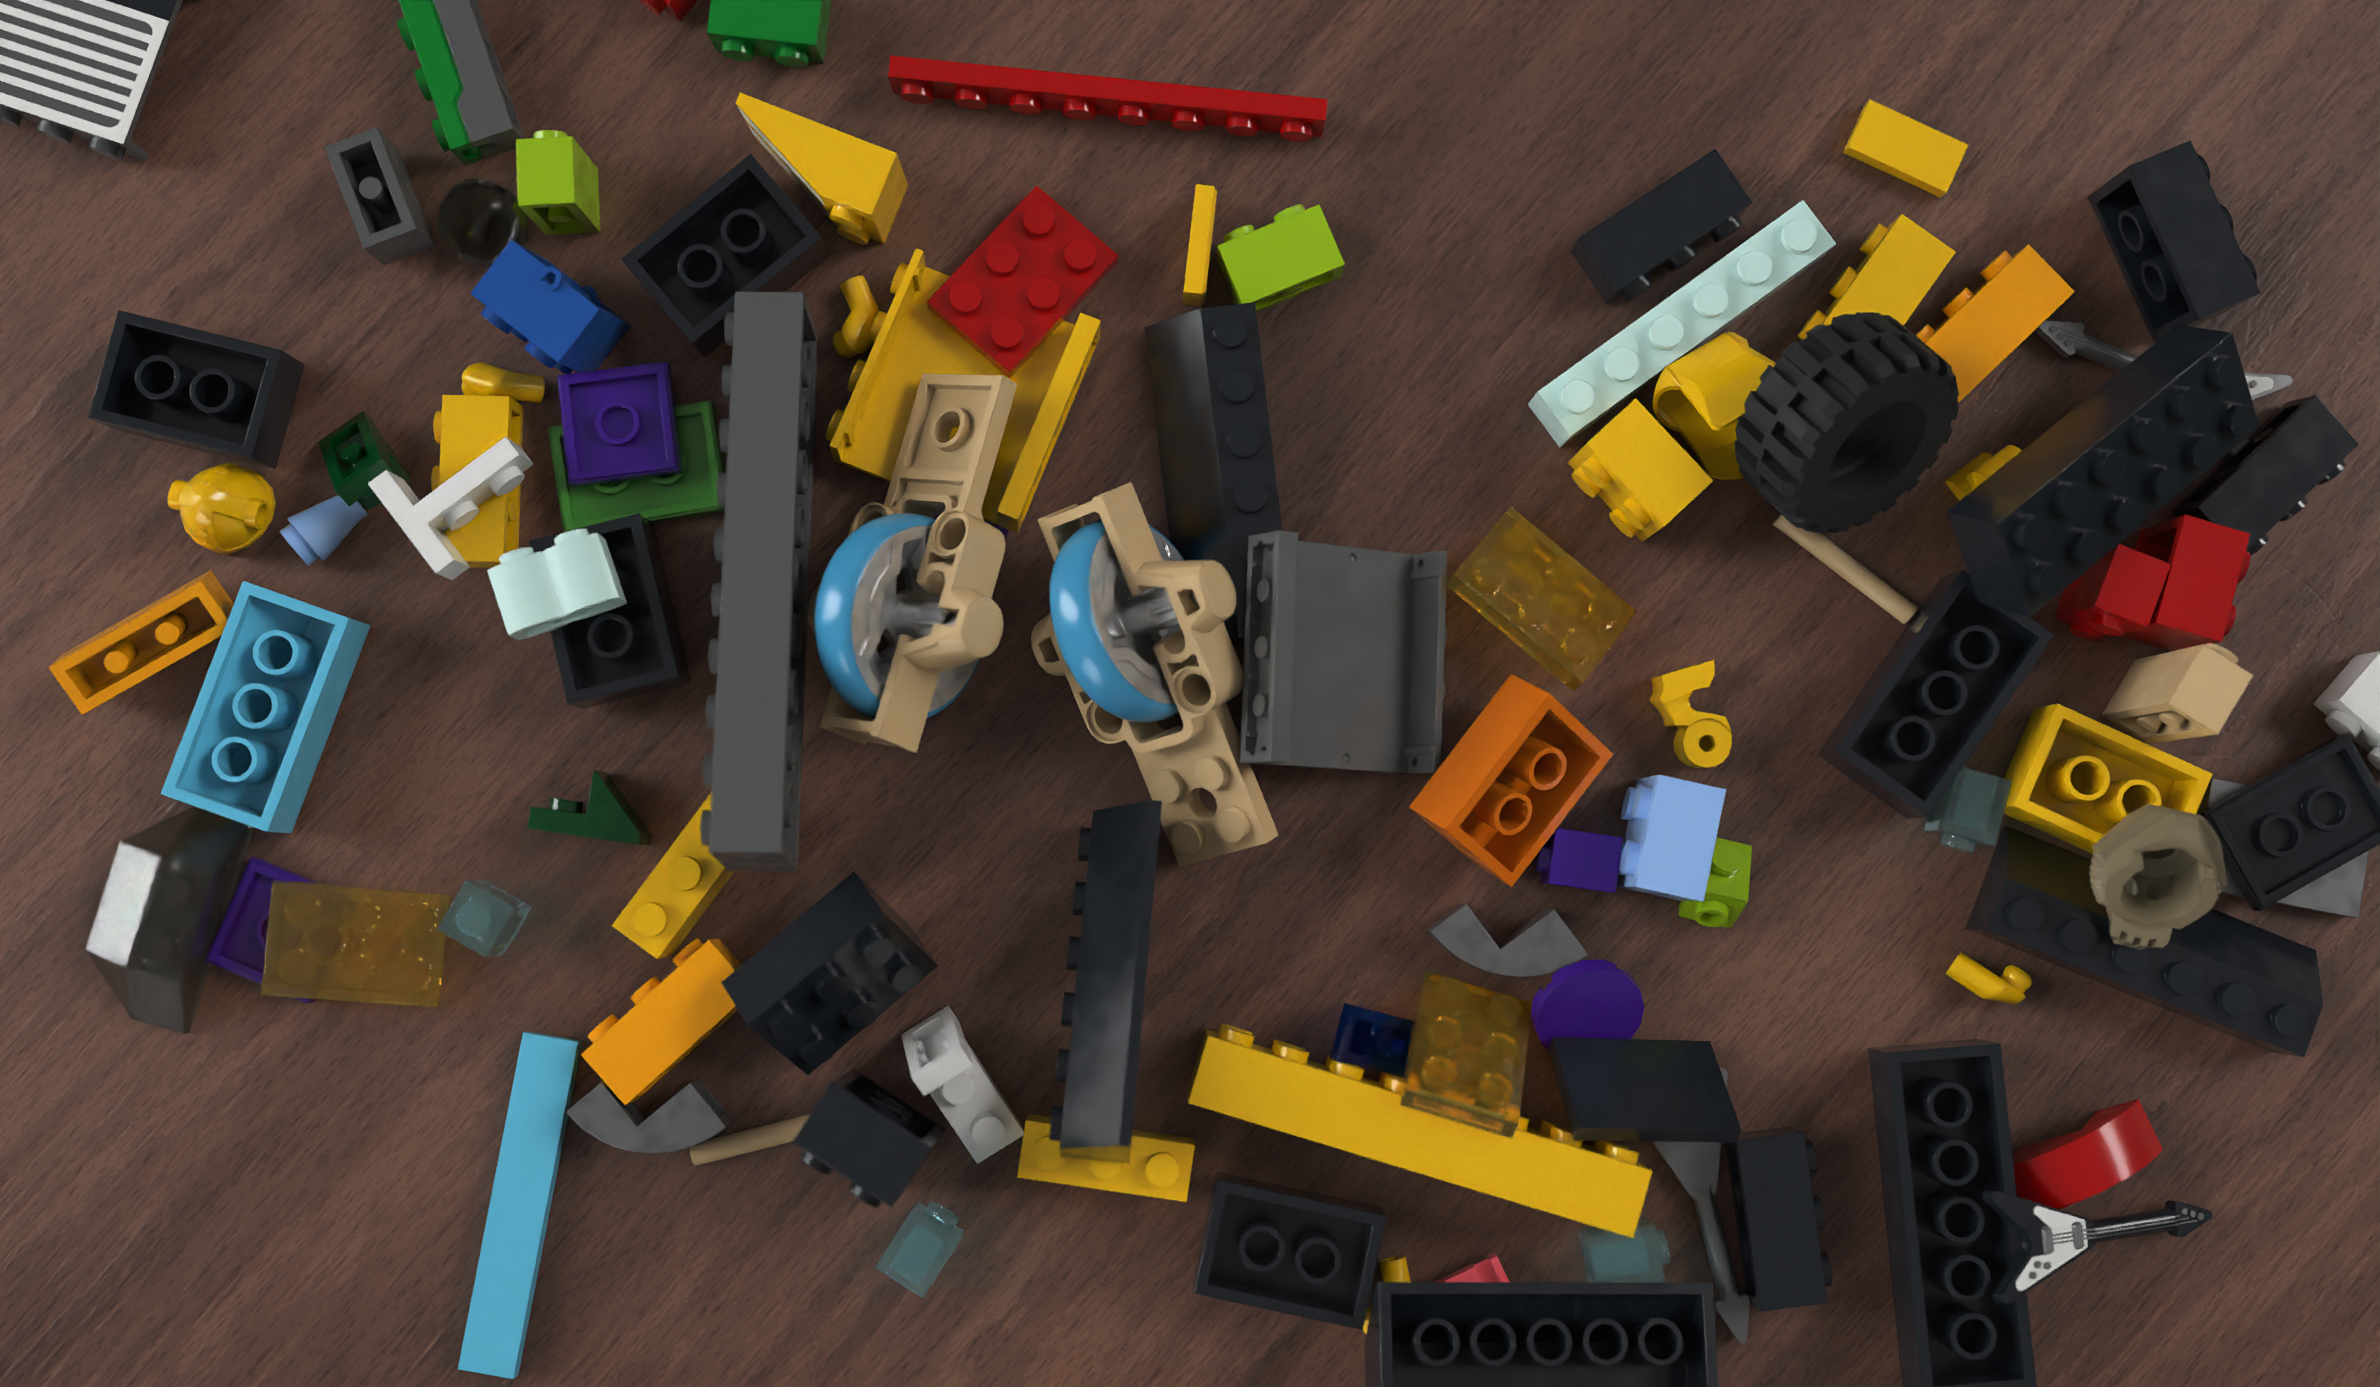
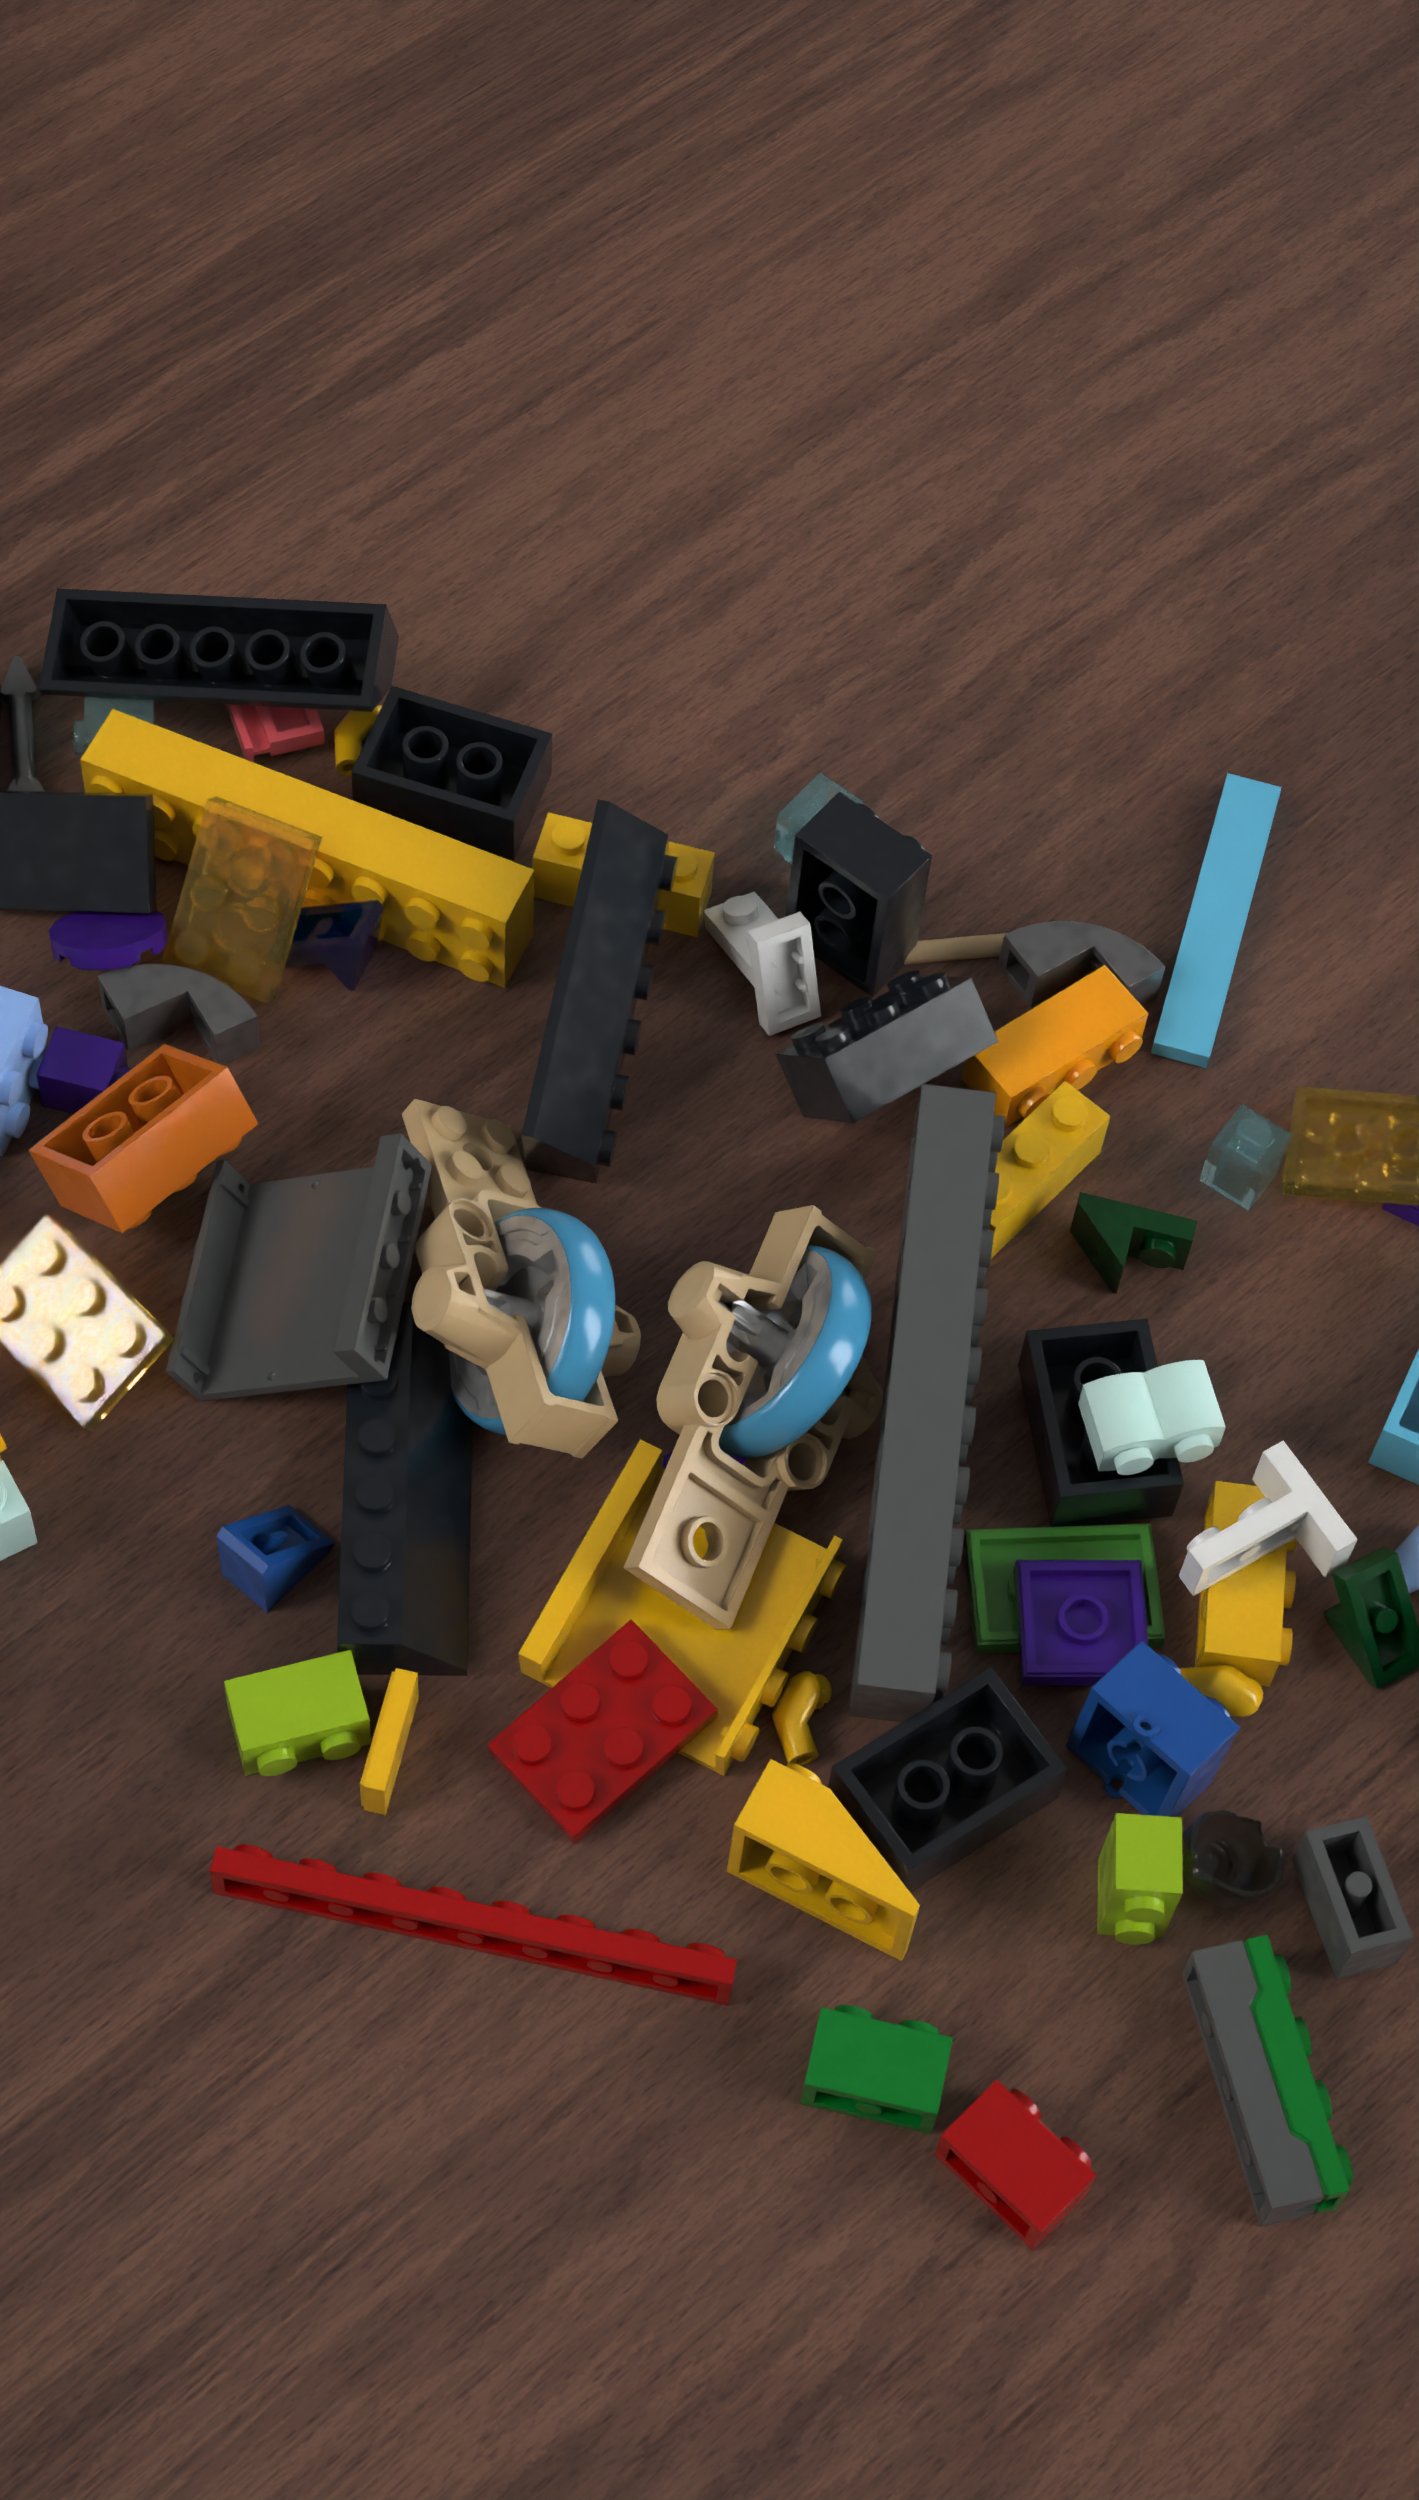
camera: 170 degrees left, 25 degrees down
(1324, 406) = (270, 1553): none -> blue slope

